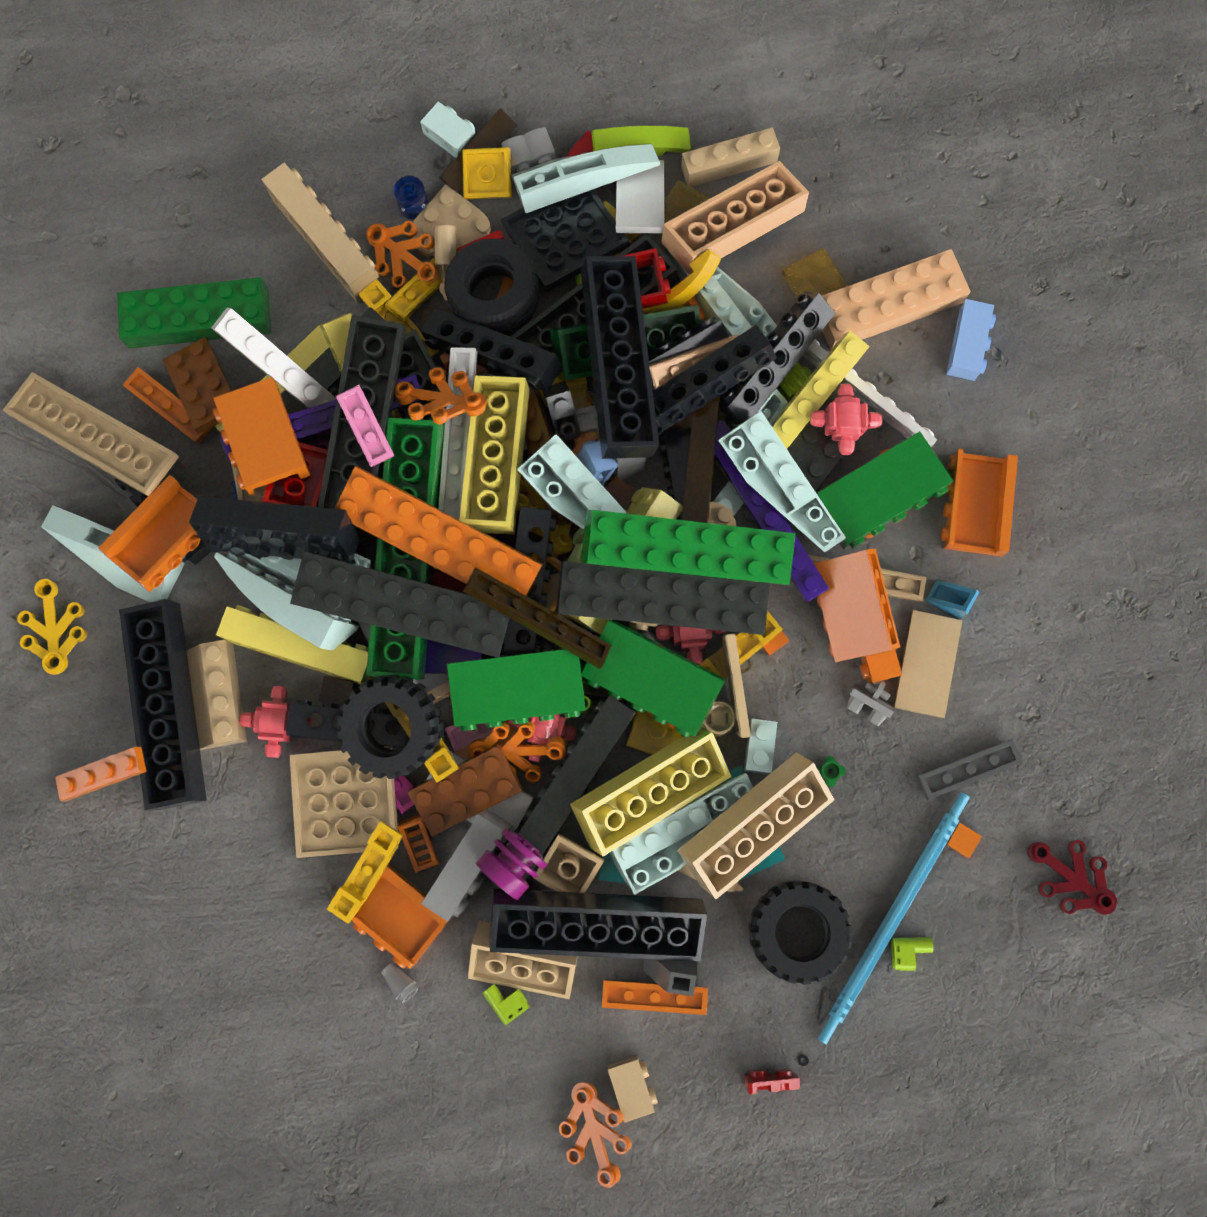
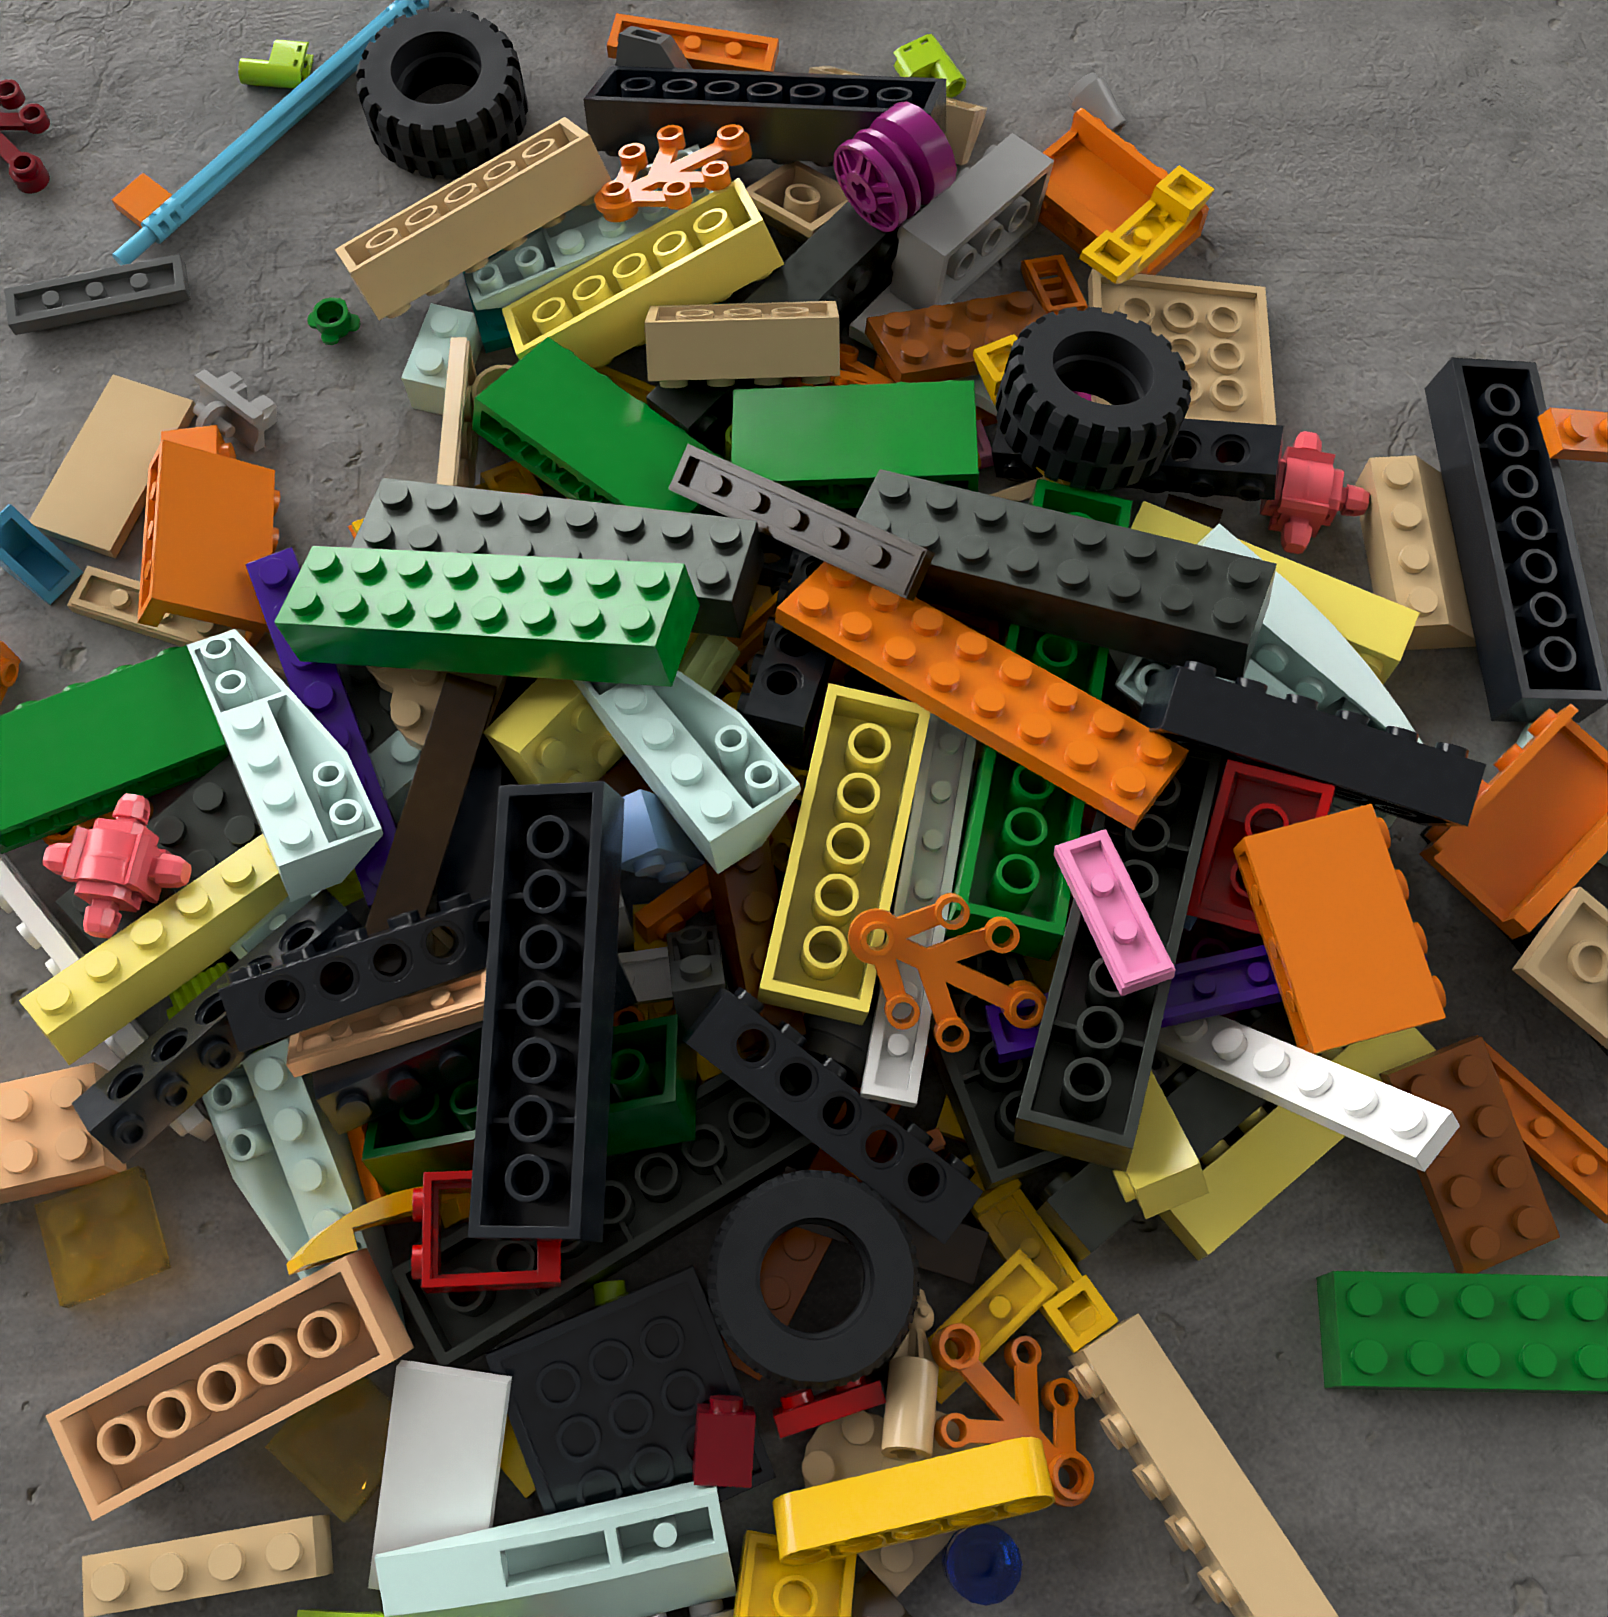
camera: 175 degrees left, 10 degrees down
(440, 207) = (912, 1501): none -> yellow beam
(522, 221) = (724, 1442): none -> dark red brick
(585, 746) = (742, 343): none -> tan slope
(646, 859) = (623, 196): none -> orange plant

